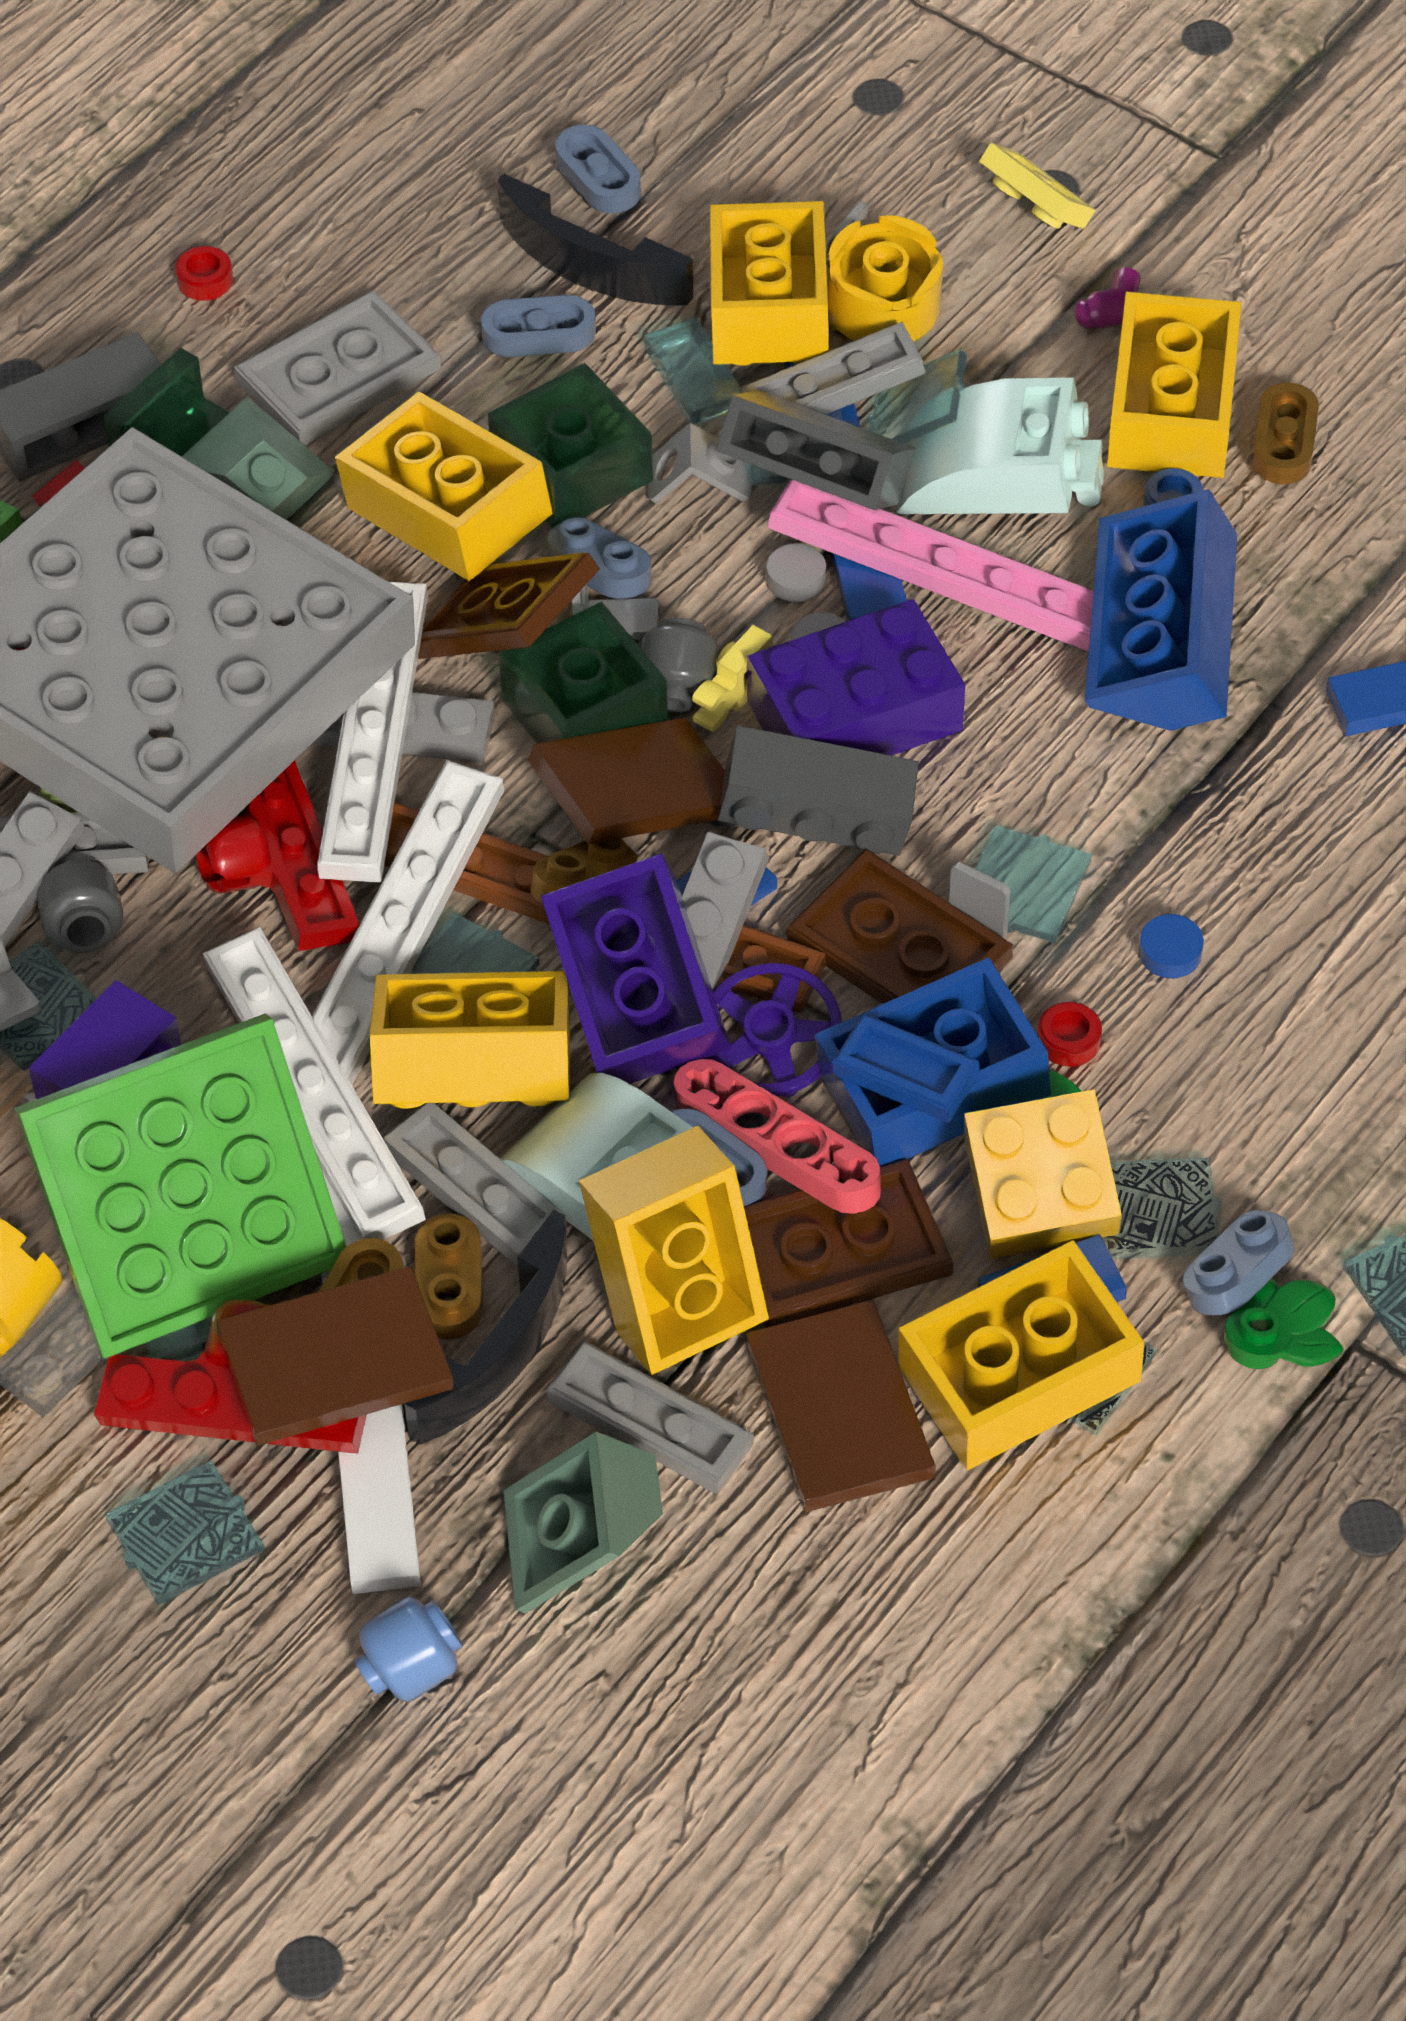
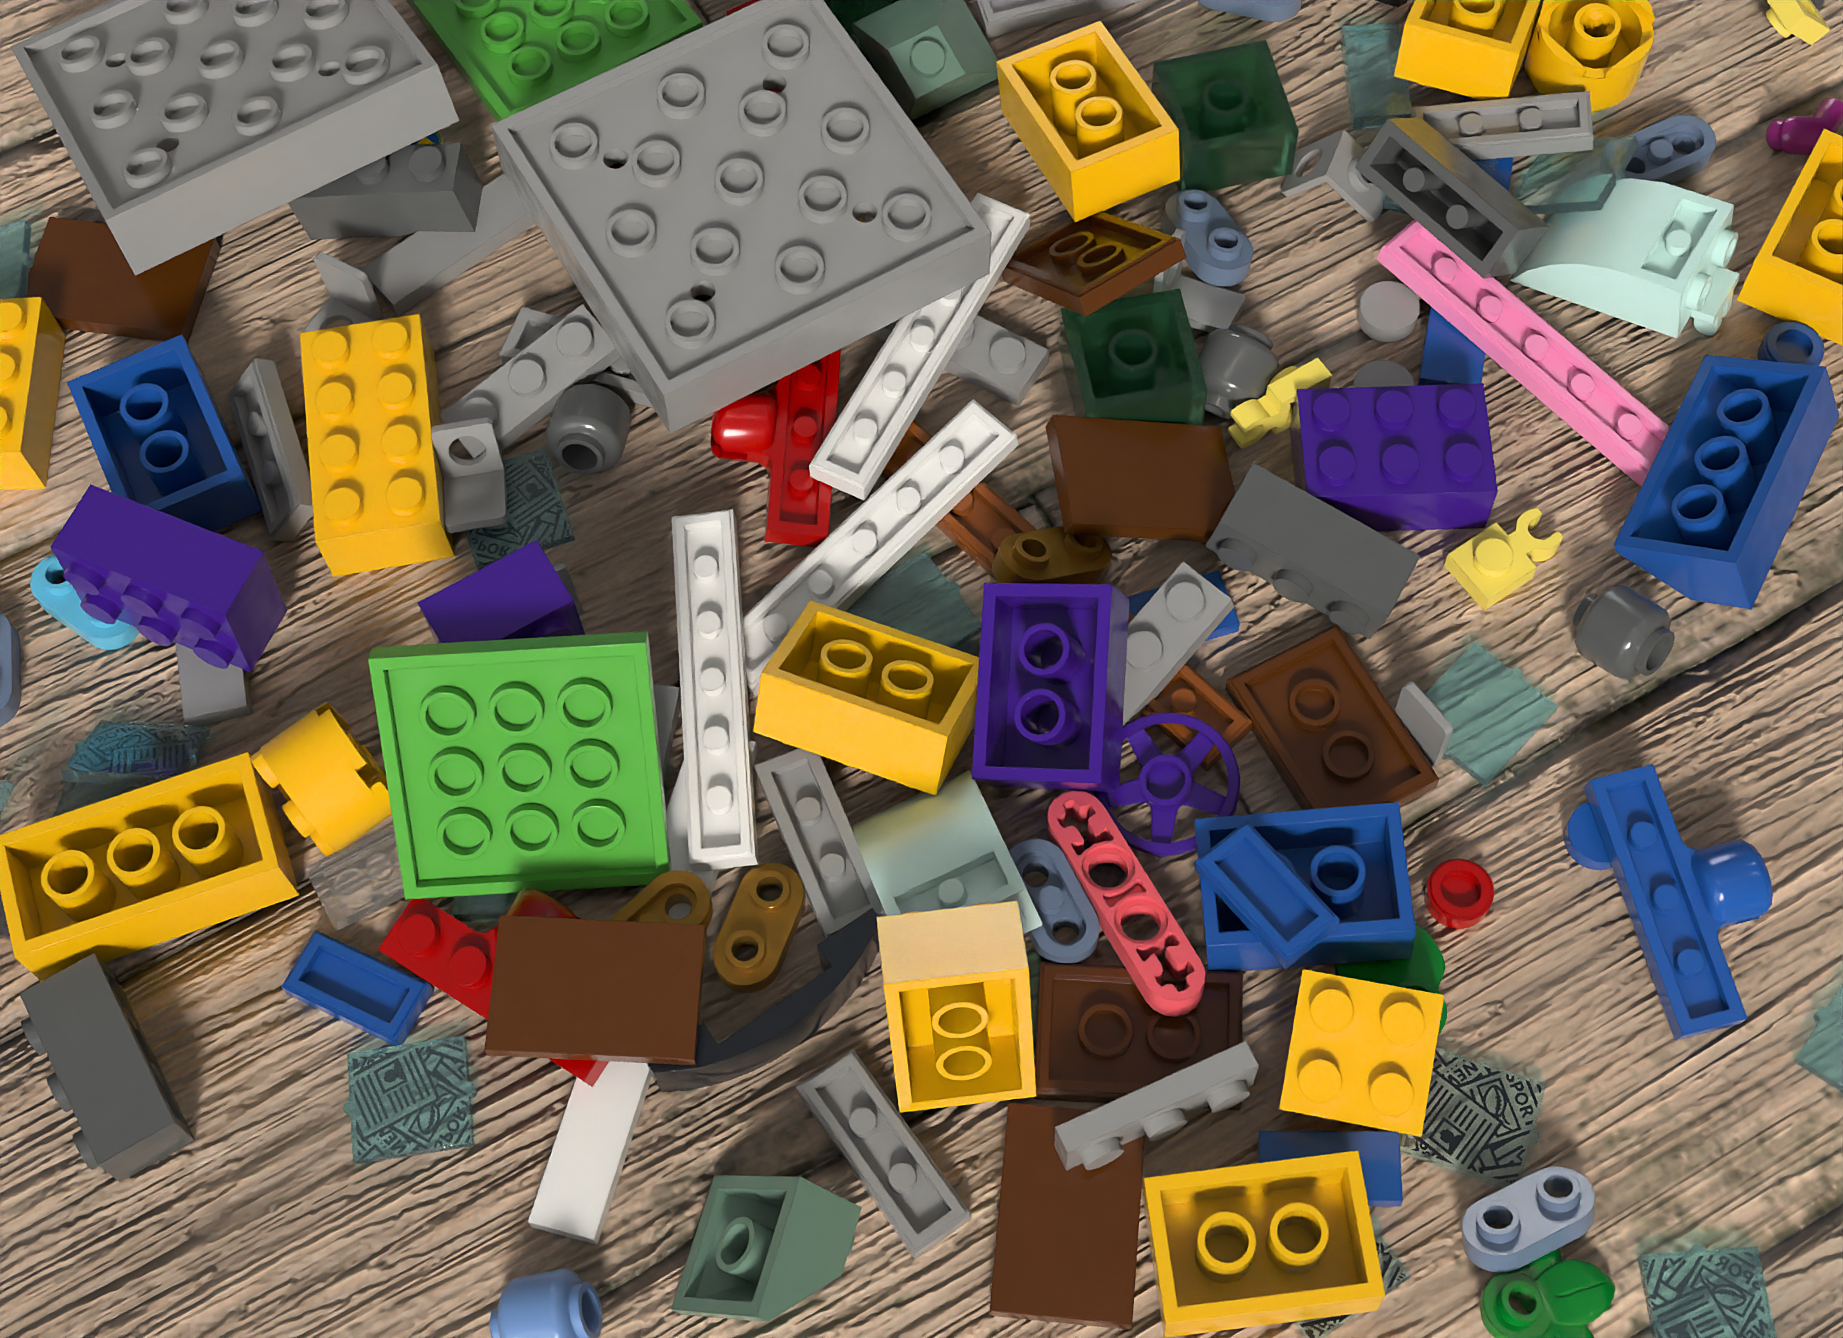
camera: 25 degrees right, 10 degrees up
(87, 1458) = (357, 988): none -> blue tile
(881, 1281) = (1156, 1108): none -> light grey plate
(988, 345) = (1656, 152): none -> sand blue plate
(988, 755) = (1500, 563): none -> light yellow plate
(1123, 771) = (1623, 632): none -> dark grey head
(1260, 967) = (1679, 898): none -> blue plate

